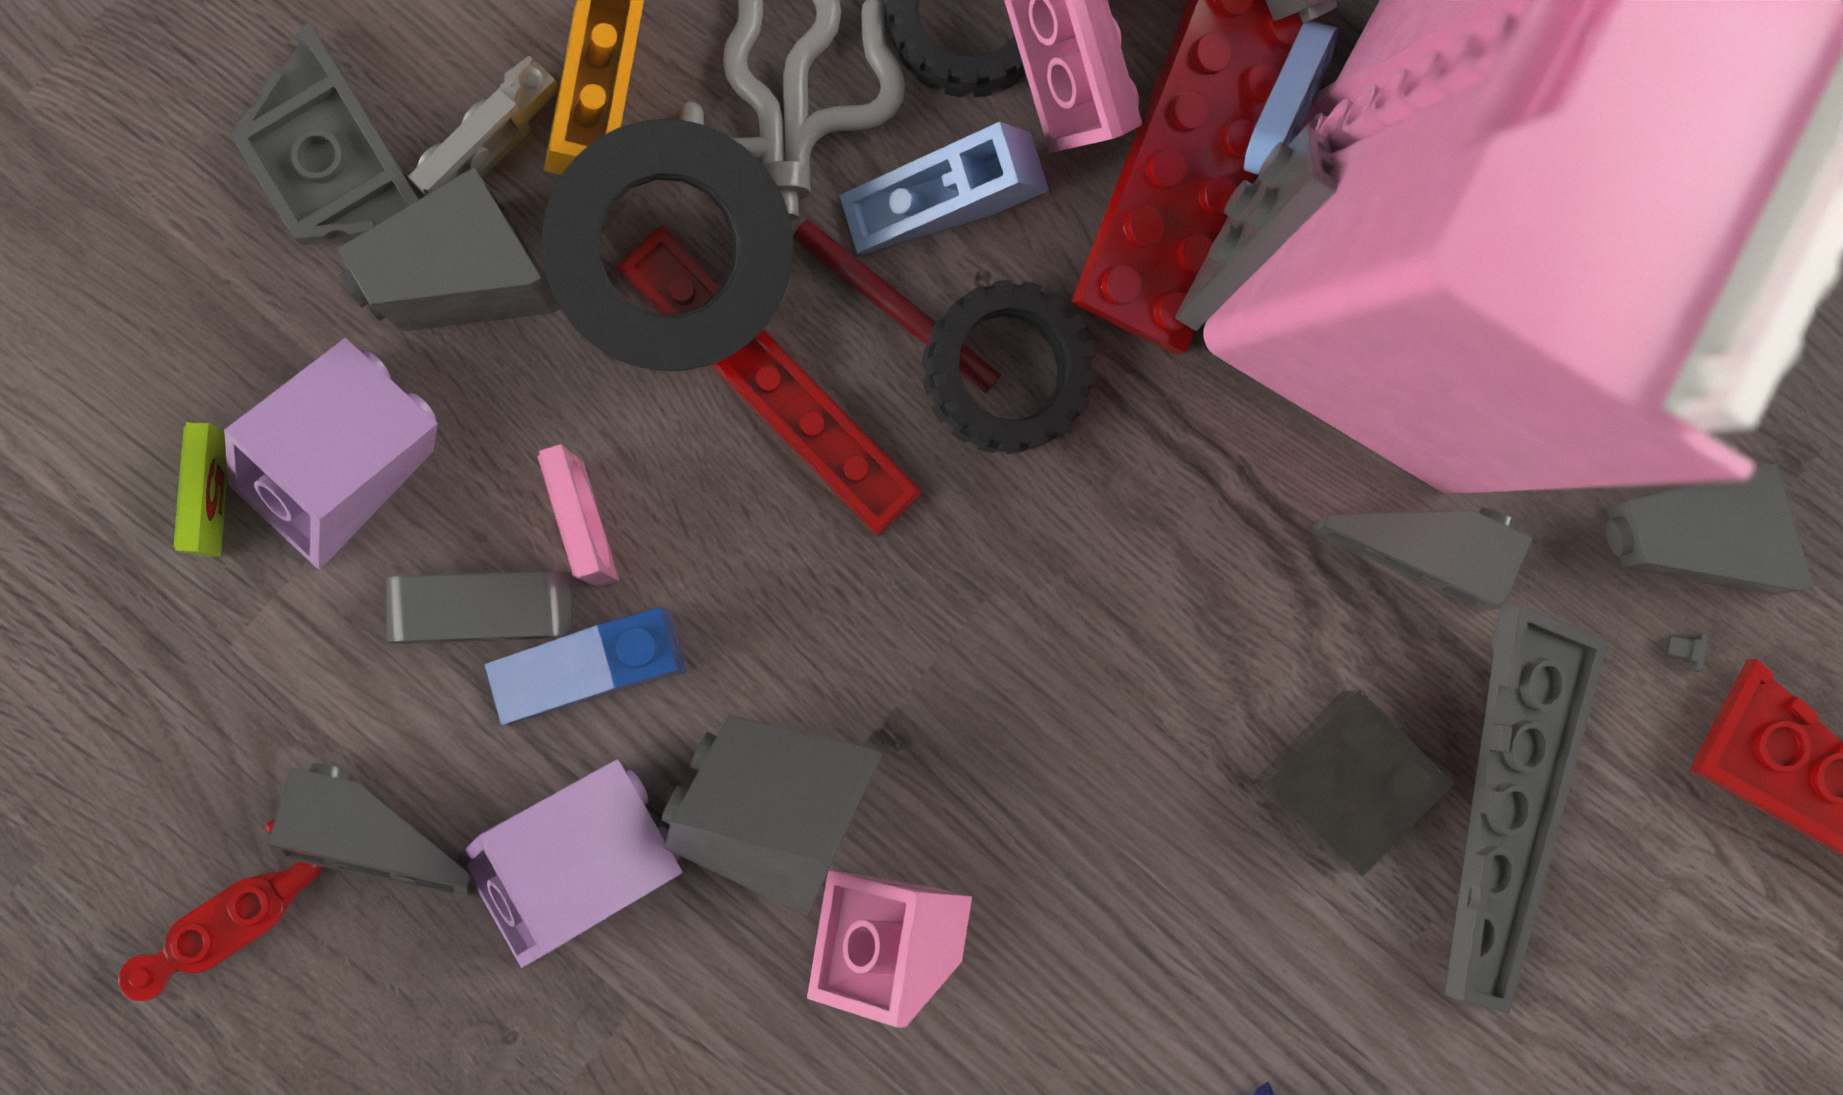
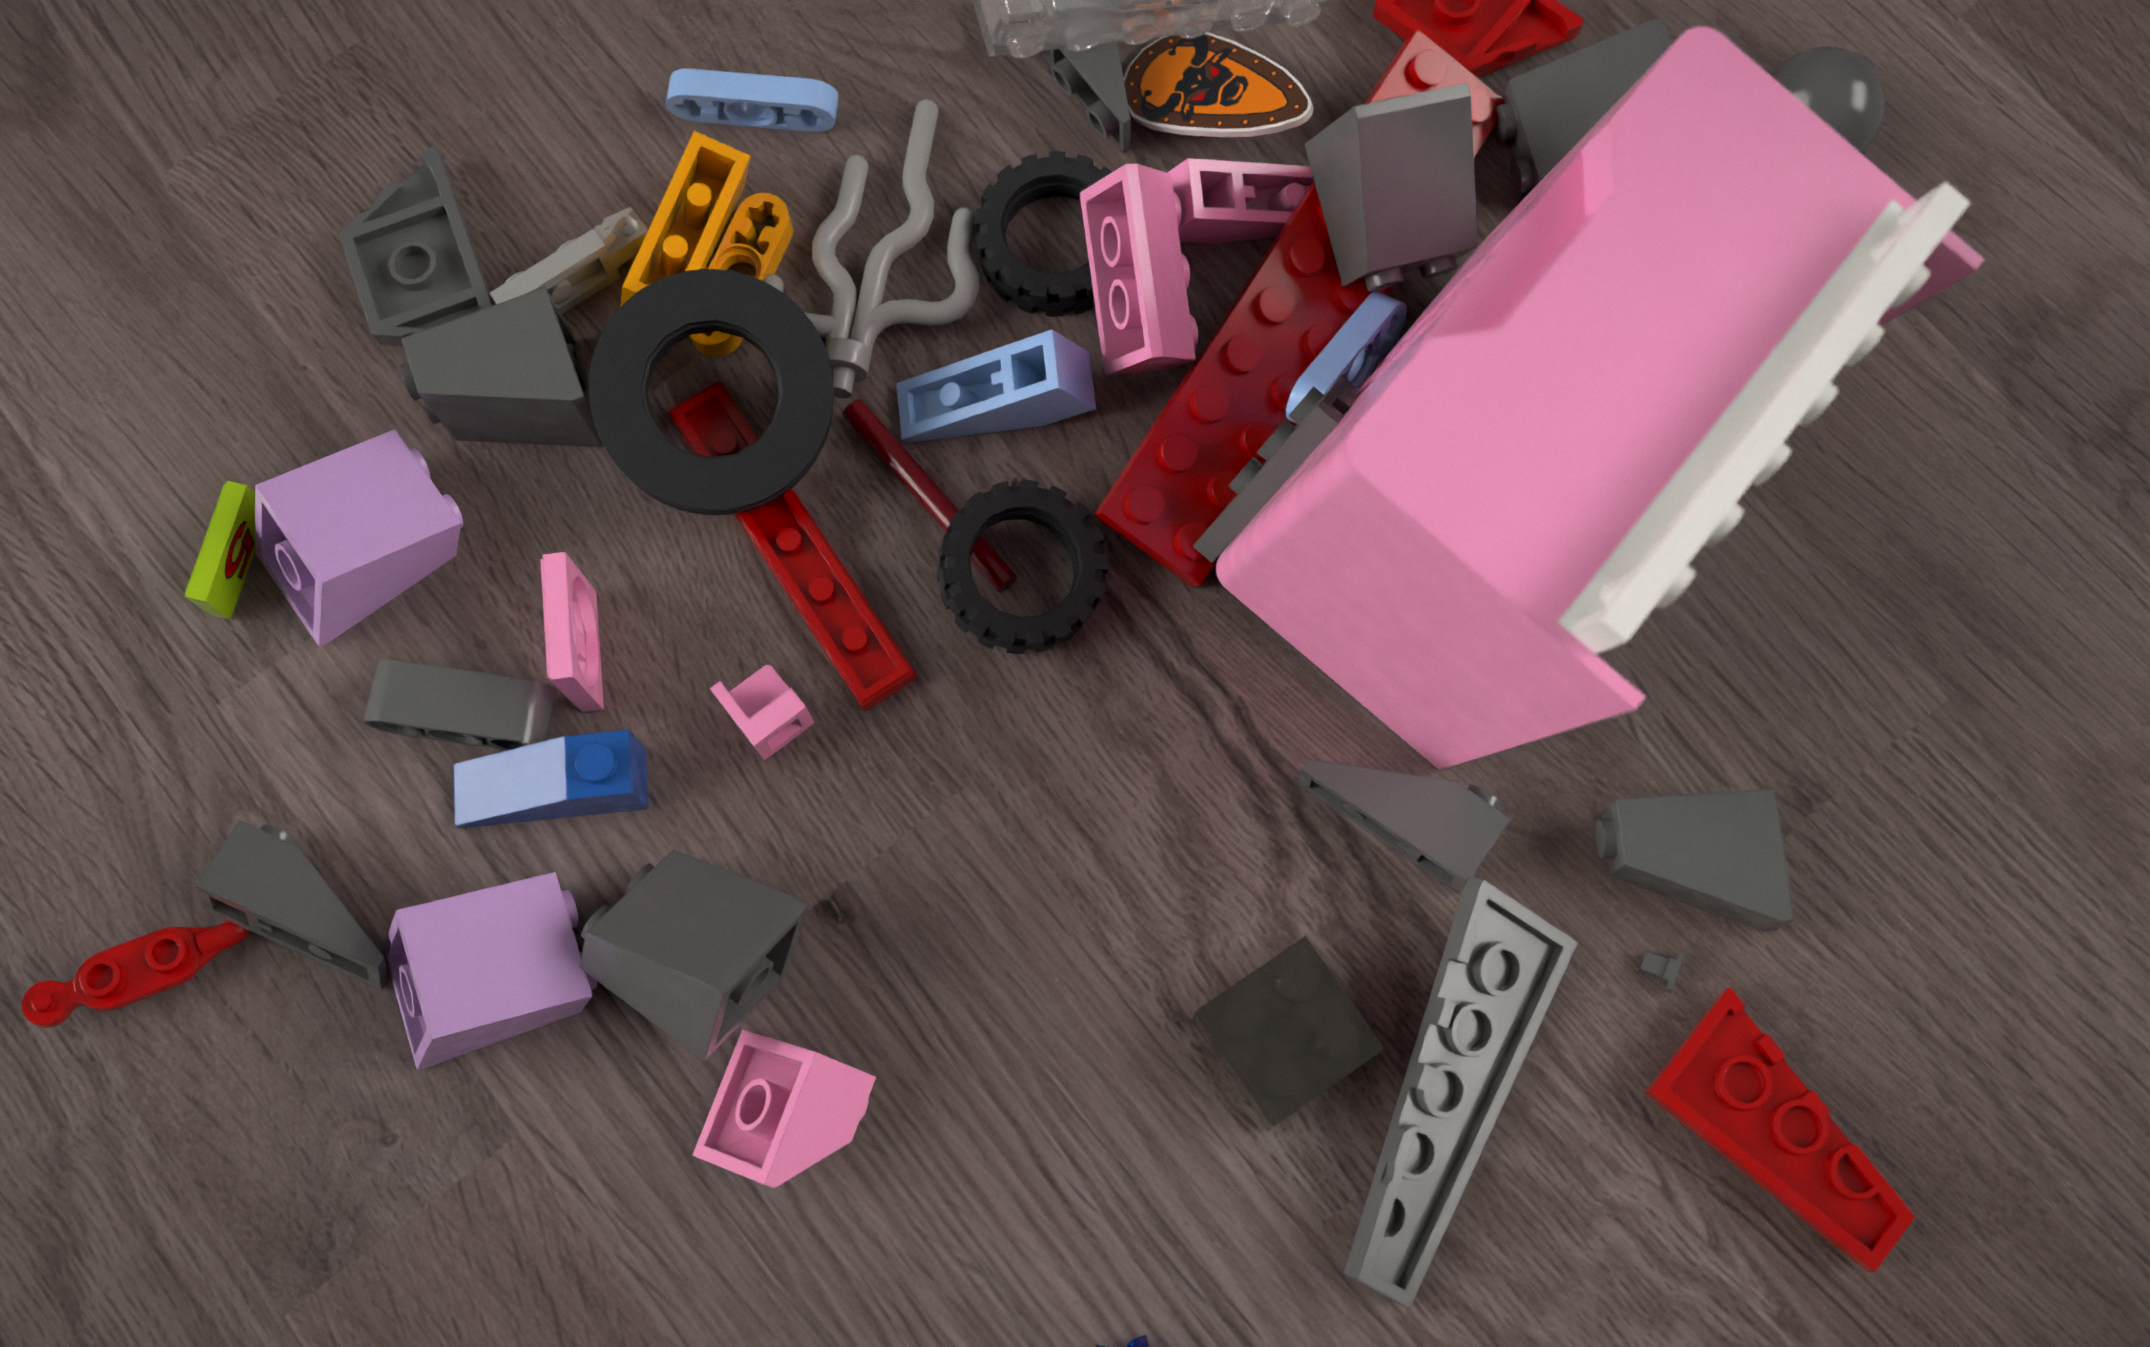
camera: 20 degrees right, 10 degrees down
(648, 60) = (738, 247): none -> light orange beam
(781, 554) = (765, 710): none -> bright pink panel

